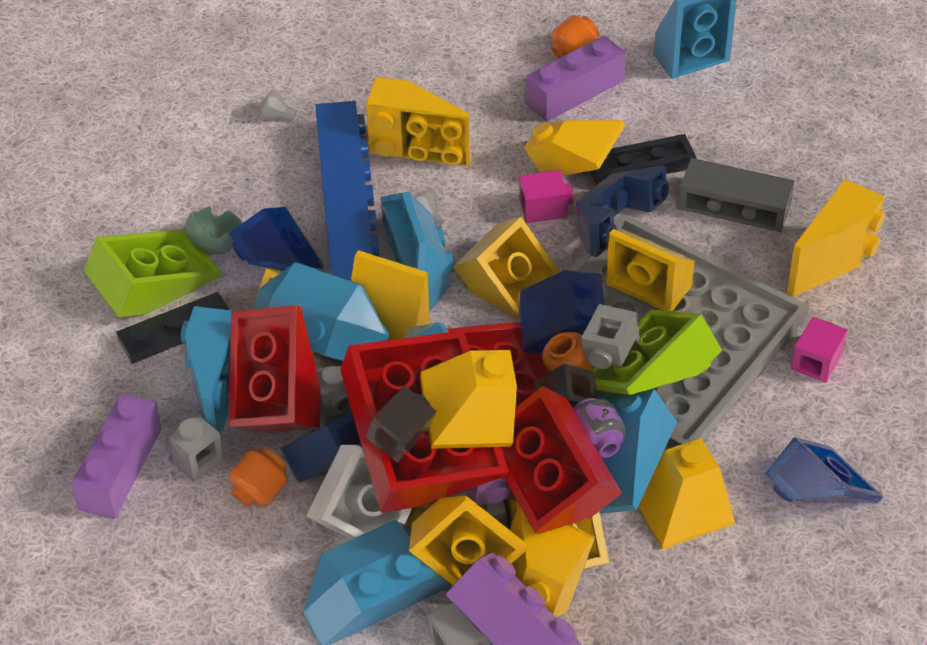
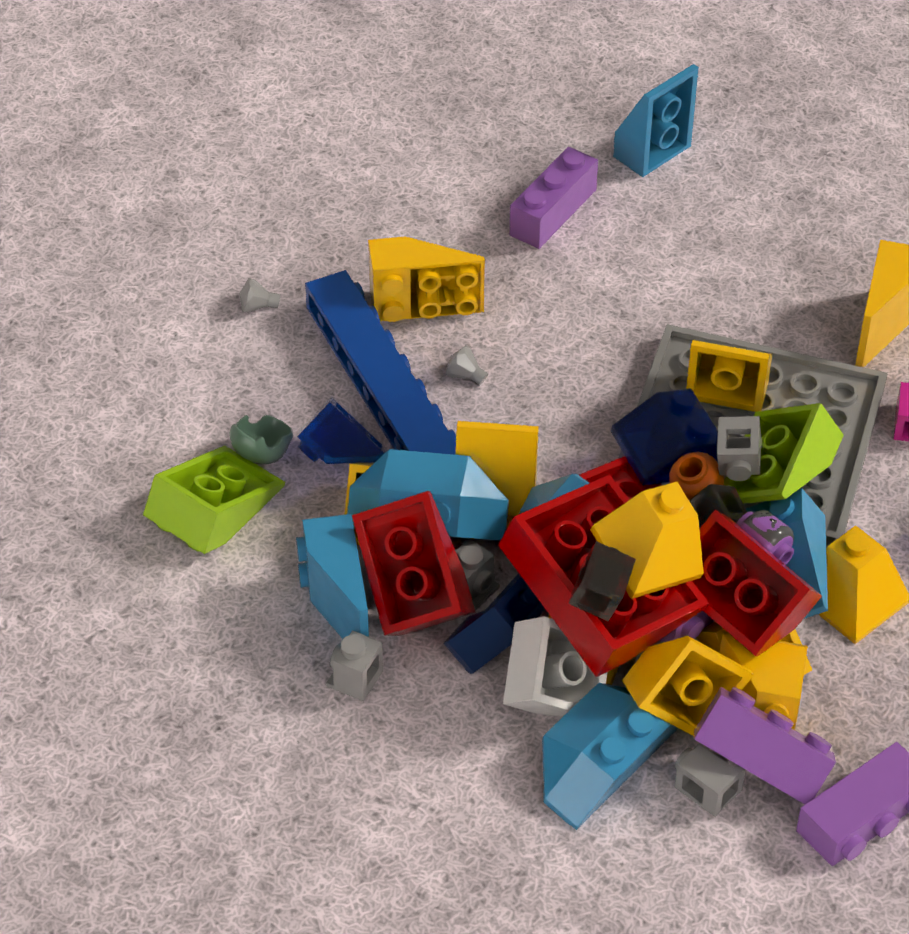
camera: 20 degrees left, 0 degrees up
(117, 456) = (279, 695): medium lavender brick -> none
(163, 330) = (260, 552): black plate -> none
(258, 477) = (434, 678): orange head -> none
(417, 241) = (468, 392): dark azure wedge -> none
(504, 264) = (578, 404): yellow slope -> none
(544, 196) = (580, 325): dark pink brick -> none
(572, 144) = (588, 267): yellow slope -> none
(573, 34) = (531, 155): orange head -> none
(632, 189) = (665, 297): dark blue slope -> none
(671, 152) = (655, 266): black plate -> none
(736, 194) = (767, 280): dark grey brick -> none

